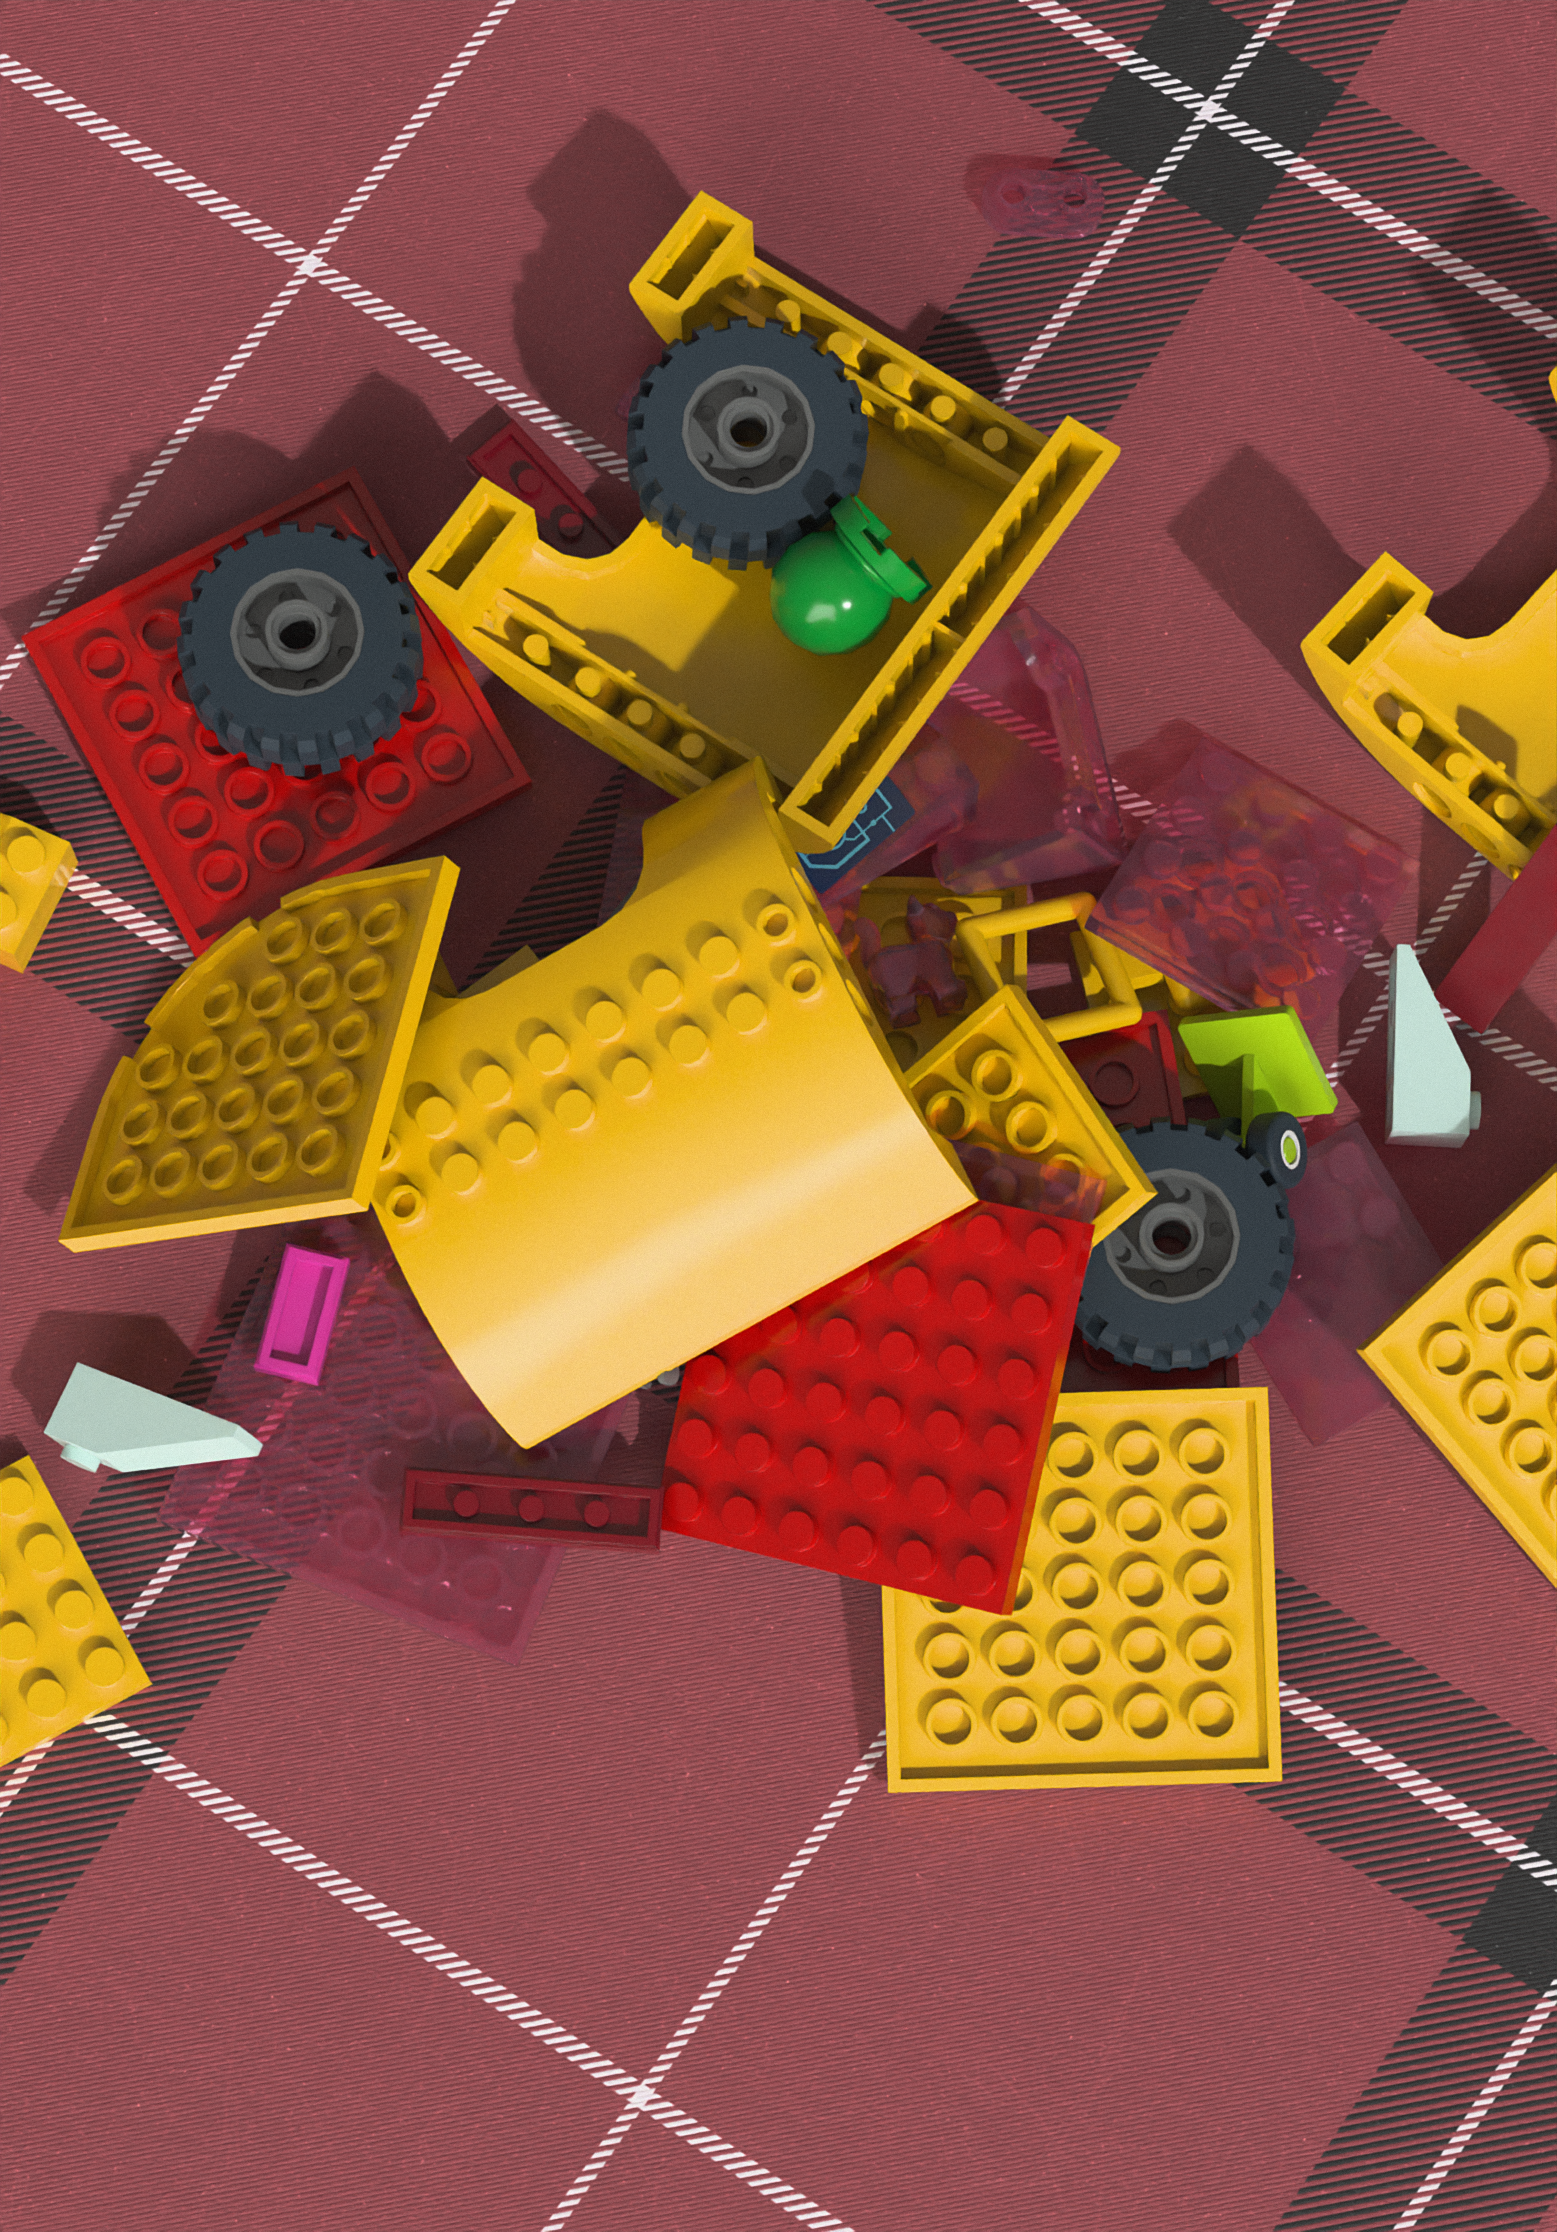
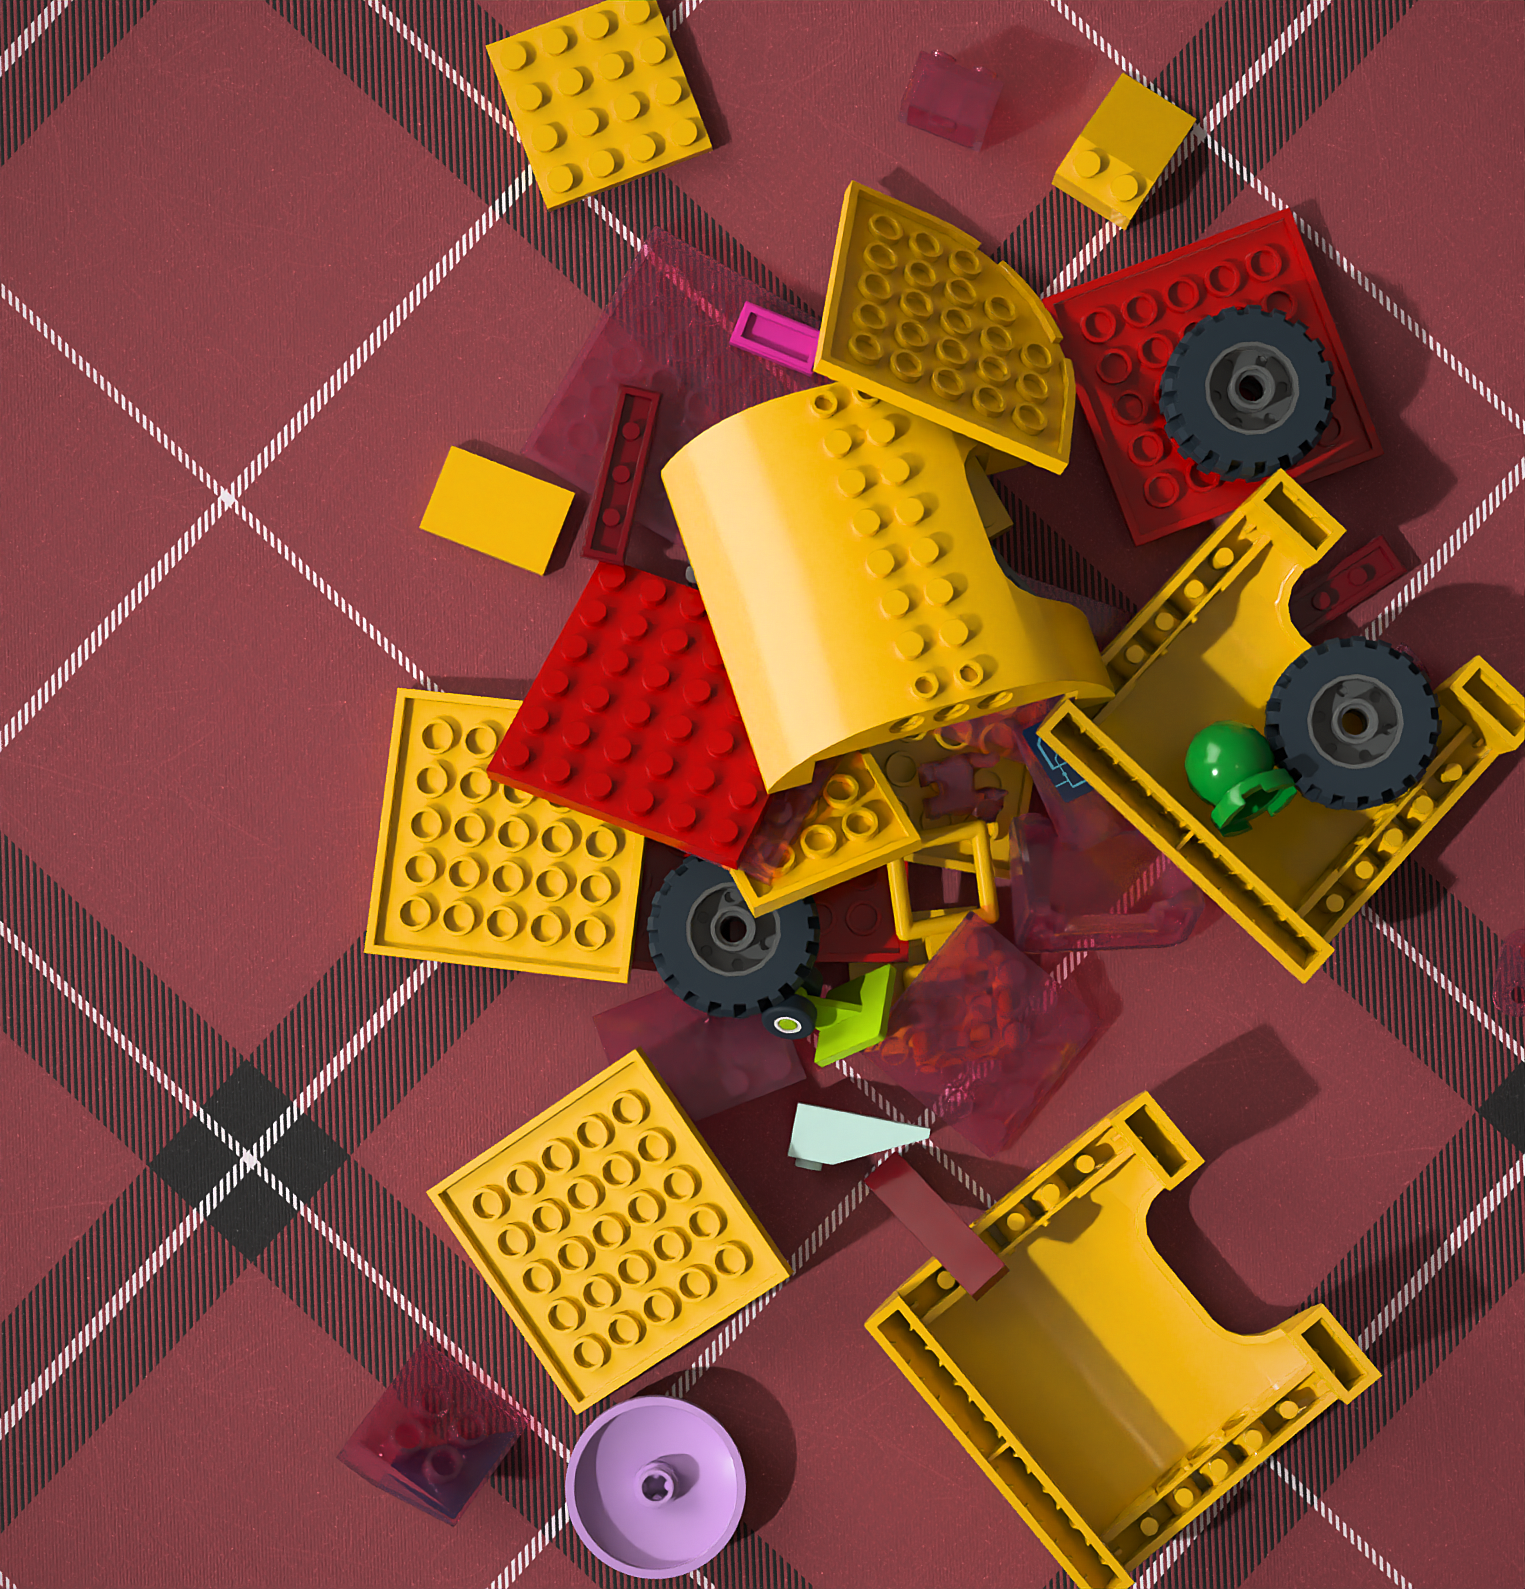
camera: 100 degrees right, 10 degrees up
(138, 1429) = (719, 212): light aqua slope -> none
(605, 1690) = (497, 511): none -> yellow tile

